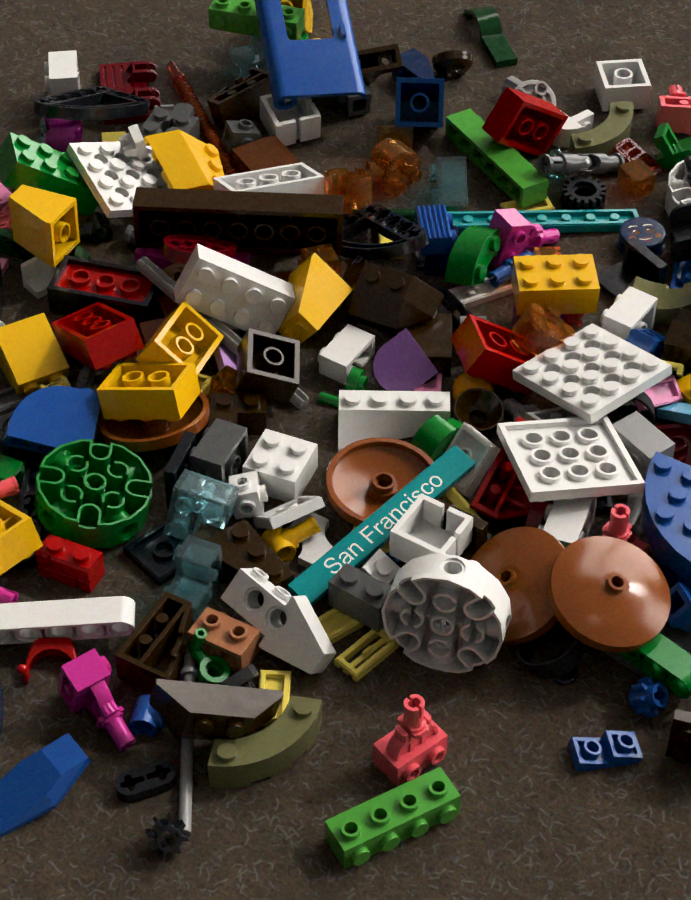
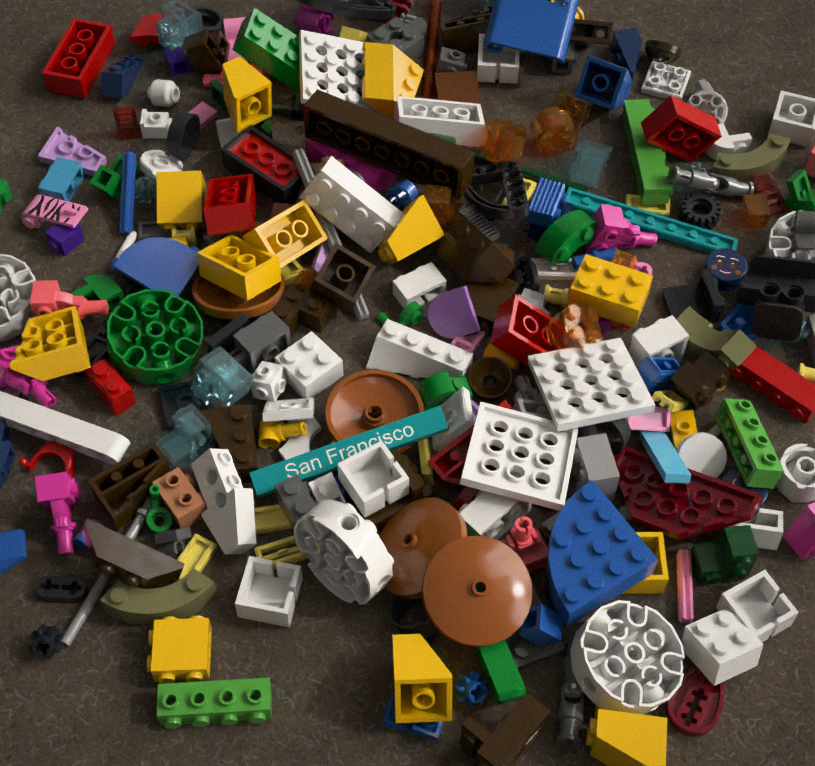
camera: 25 degrees right, 10 degrees up
(133, 143) = (353, 45): white tile -> none
(180, 246) = (349, 156): dark red piece -> none
(284, 269) = (402, 193): none -> blue beam
(323, 781) = (180, 649): none -> yellow brick
(380, 699) = (266, 596): none -> white piece
(411, 744) = (261, 648): coral brick -> none
(470, 91) = (665, 80): none -> white tile
(492, 36) = (714, 35): dark green piece -> none
(495, 315) = (556, 296): none -> light yellow bush
(600, 702) = (420, 682): none -> yellow slope

